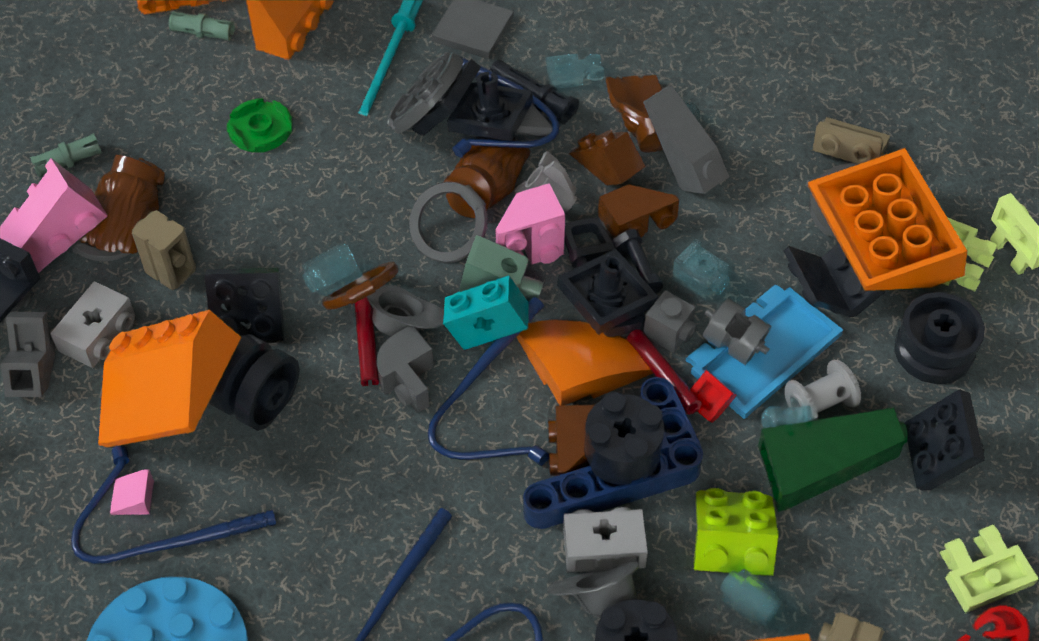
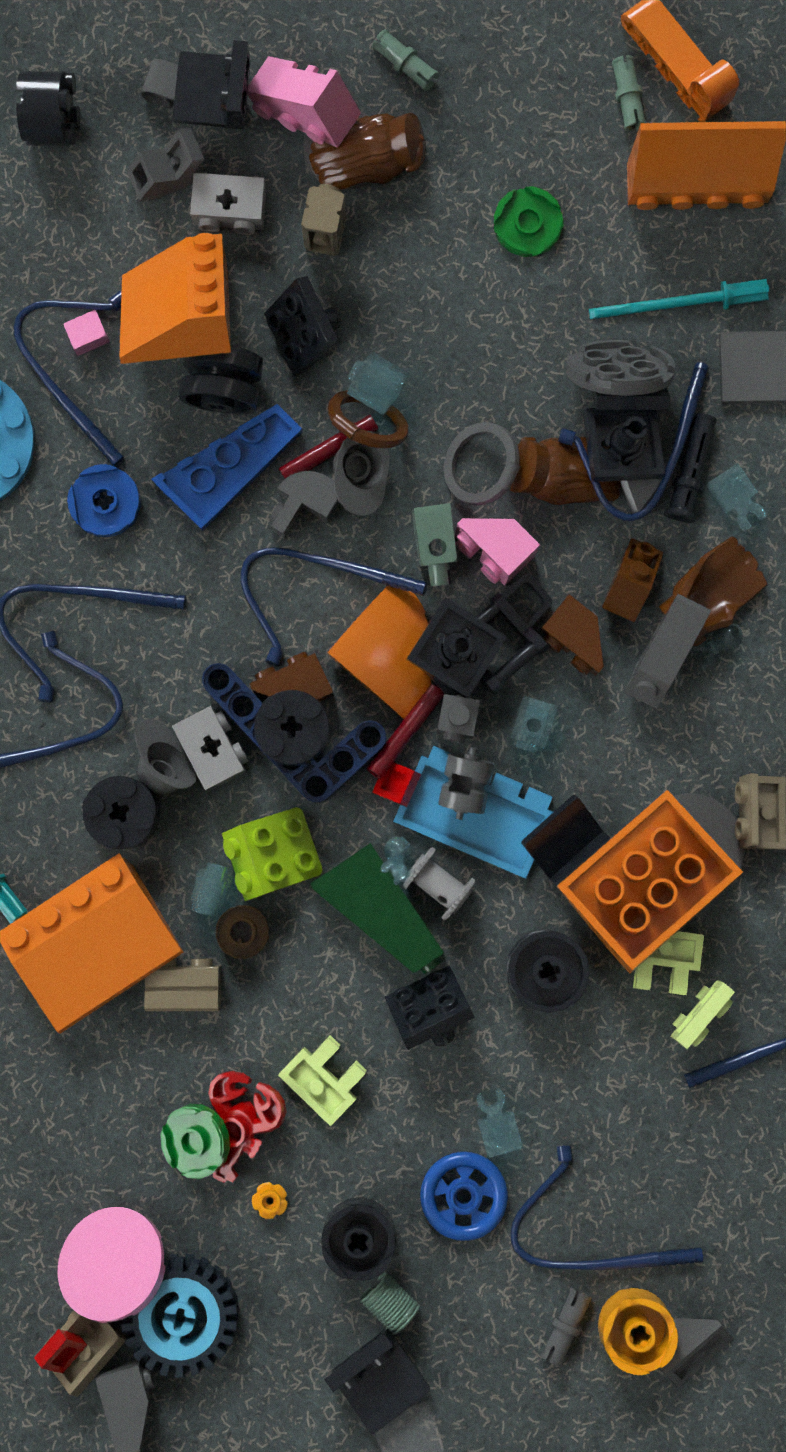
camera: 65 degrees right, 30 degrees up
(295, 525) = (87, 490): none -> blue plate
(337, 430) = (221, 472): none -> blue wing
(486, 312) = (385, 548): teal brick -> none
(552, 172) = (565, 541): light grey brick -> none
(806, 582) = (242, 931): none -> dark brown plate

